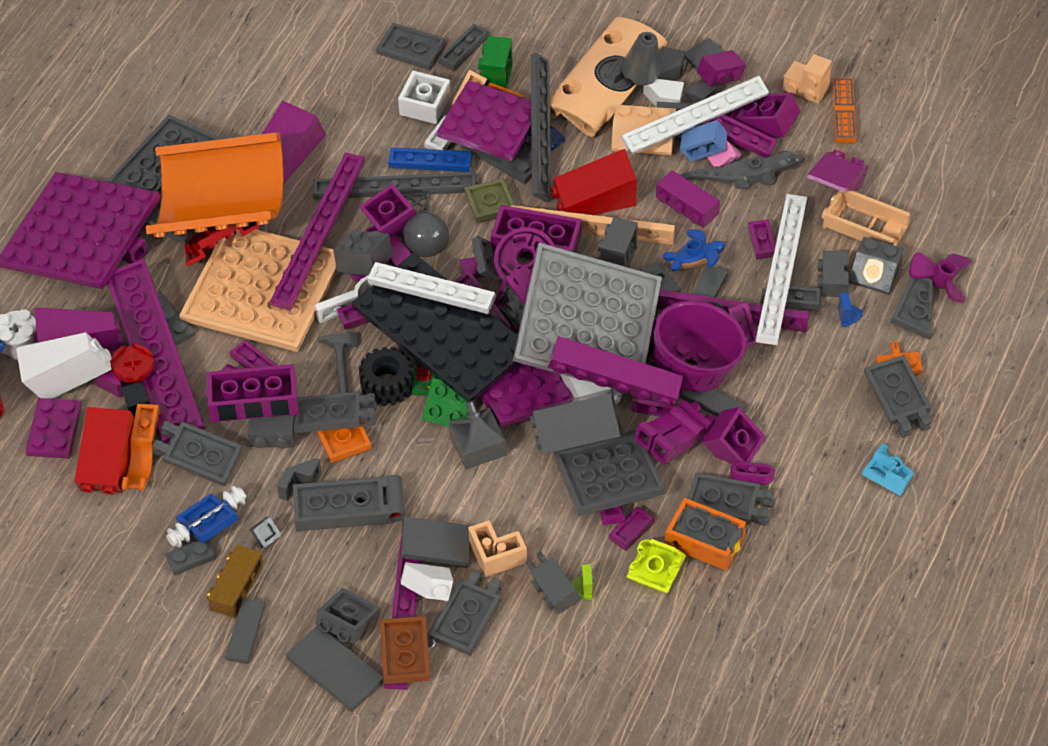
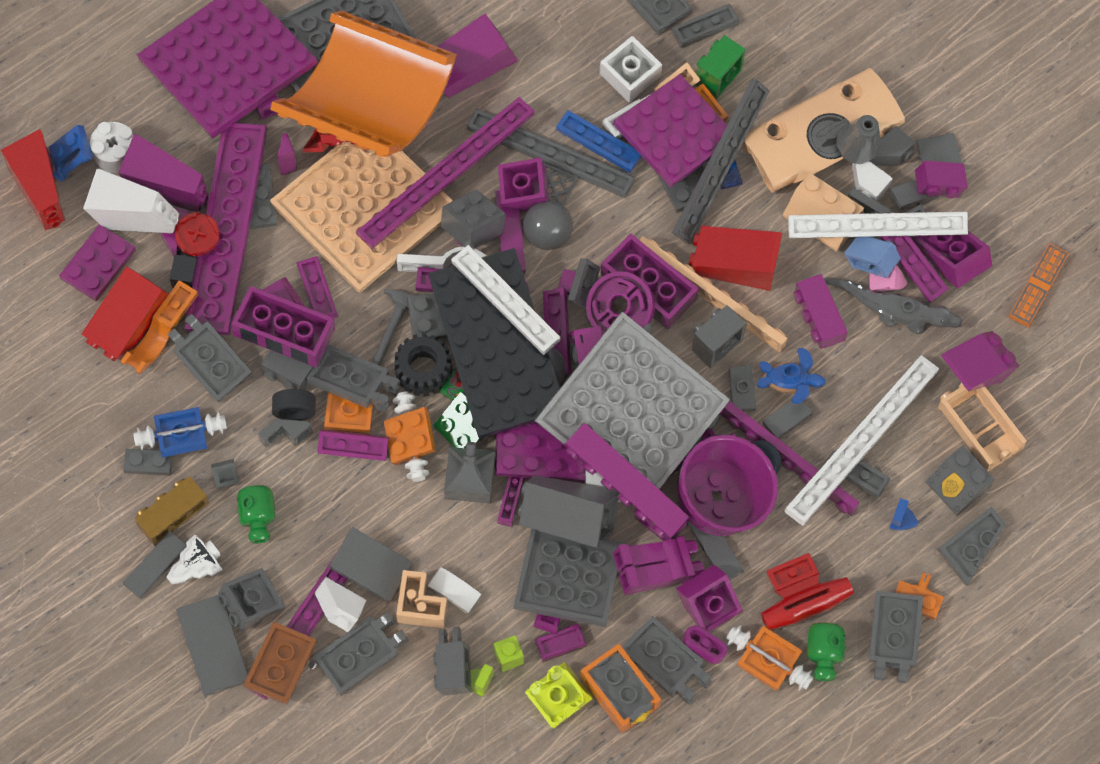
camera: 25 degrees right, 15 degrees up
(176, 274) = (286, 156): none -> magenta slope
(281, 609) = (195, 561): none -> white rock
(290, 444) = (293, 404): none -> black tyre
(311, 546) = (256, 511): none -> green piece
(348, 503) = (304, 477): dark grey hinge -> none
(363, 461) = (353, 445): none -> magenta plate
(365, 338) = (425, 316): none -> dark grey plate
(408, 433) = (410, 436): none -> orange plate
(487, 198) = (629, 215): olive plate -> none
(522, 444) = (510, 501): none -> magenta piece
(529, 529) = (454, 589): none -> white slope
(595, 552) = (508, 653): none -> lime brick
(743, 315) = (788, 480): magenta plate -> none
(762, 238) = (867, 392): magenta plate -> none
(804, 400) = (802, 593): none -> red plate
(809, 80) = (1020, 235): light nougat brick -> none
(811, 458) = (769, 658): none -> orange plate
(834, 273) = (910, 473): dark grey brick -> none
(851, 429) = (826, 648): none -> green piece
(888, 471) = (836, 709): medium azure slope -> none
(940, 273) = (1003, 508): magenta piece -> none

